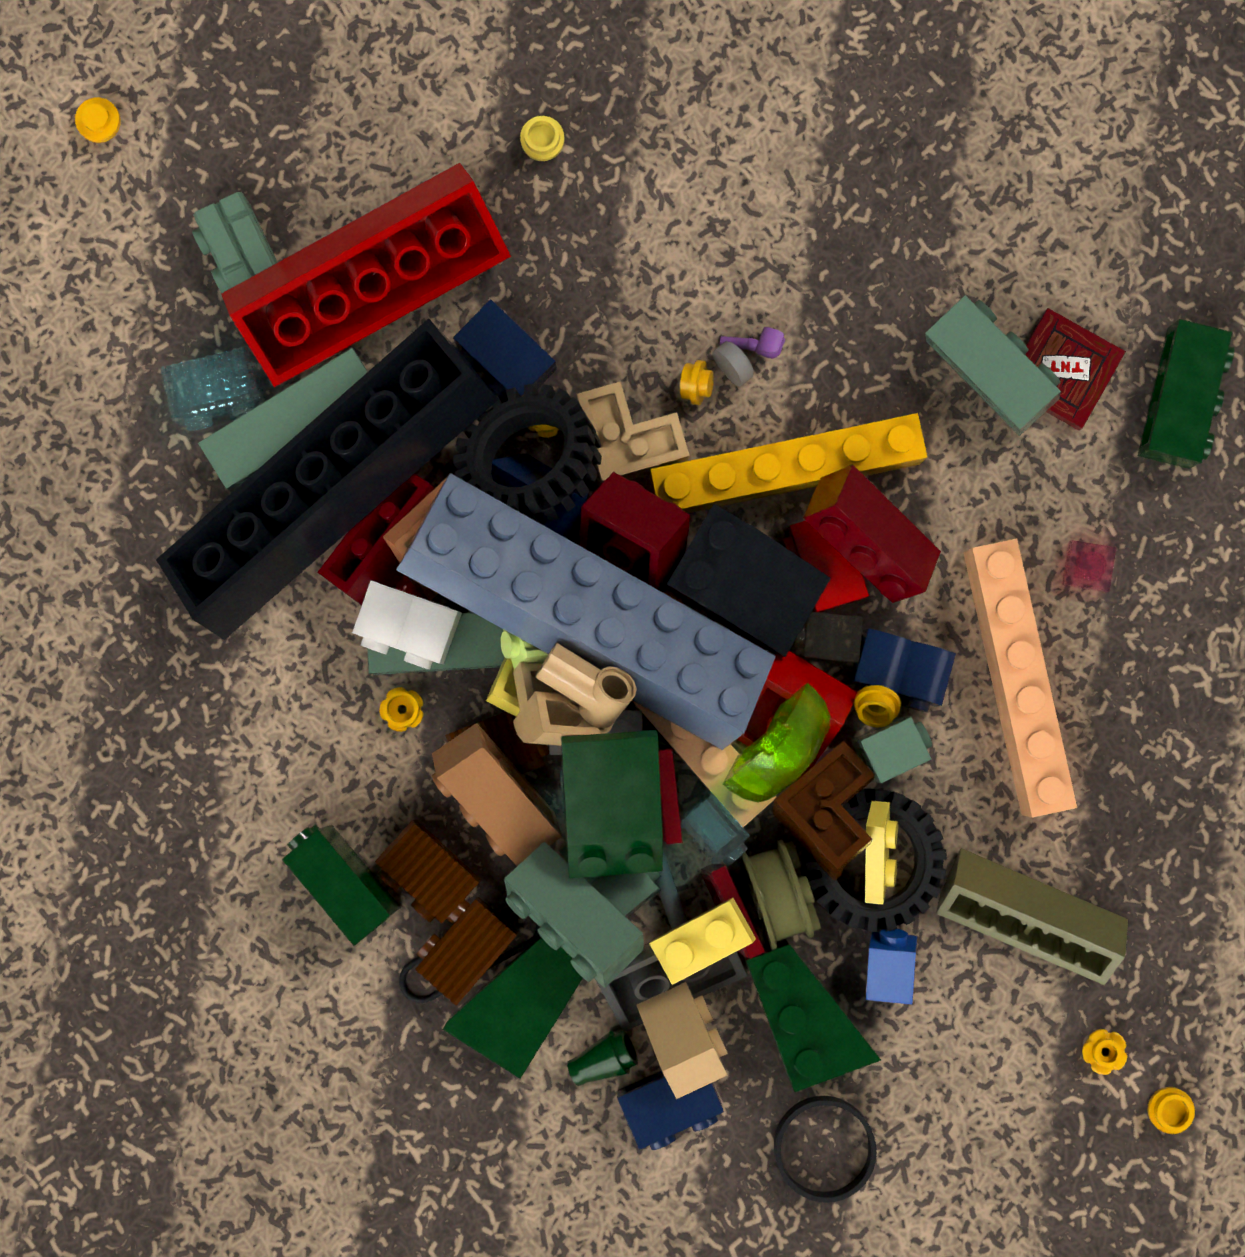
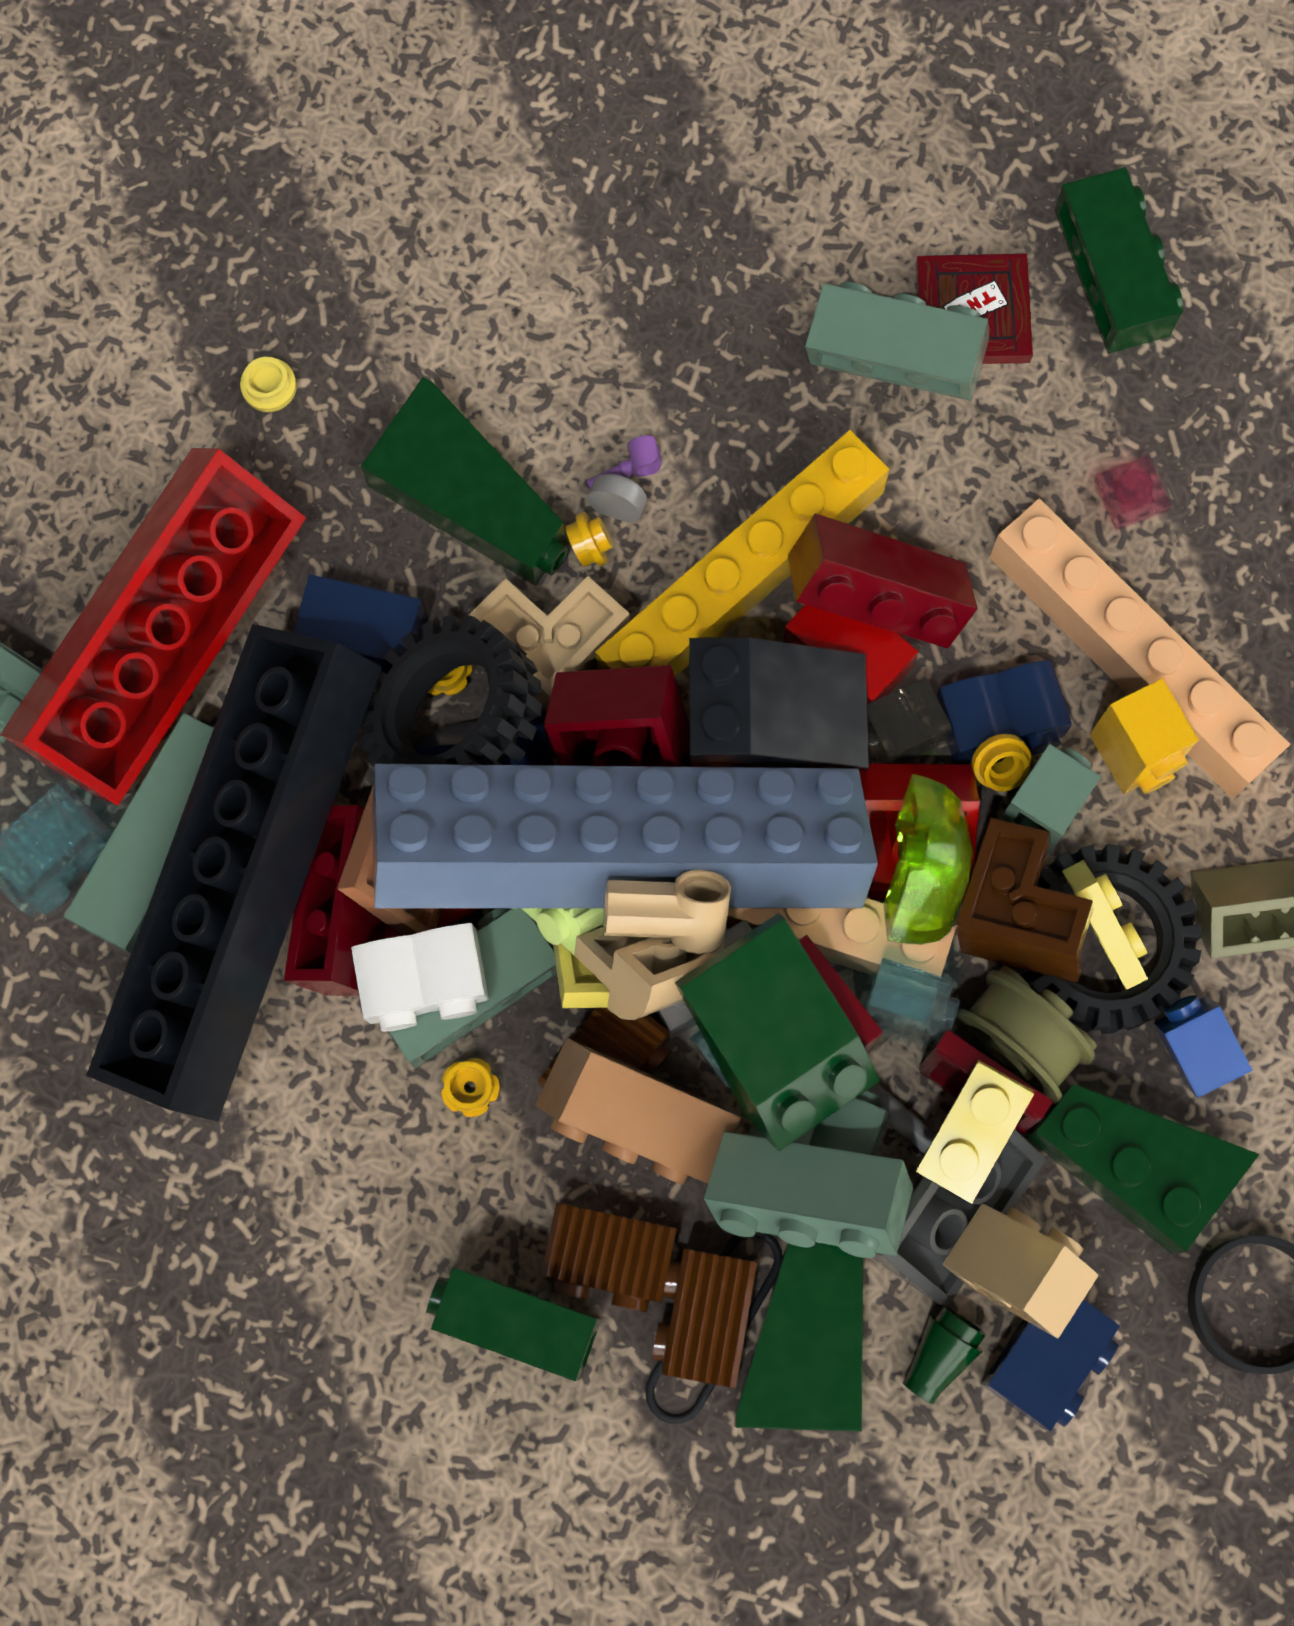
camera: 30 degrees left, 10 degrees down
(631, 288) = (459, 483): none -> dark green slope
(982, 746) = (1144, 738): none -> yellow brick

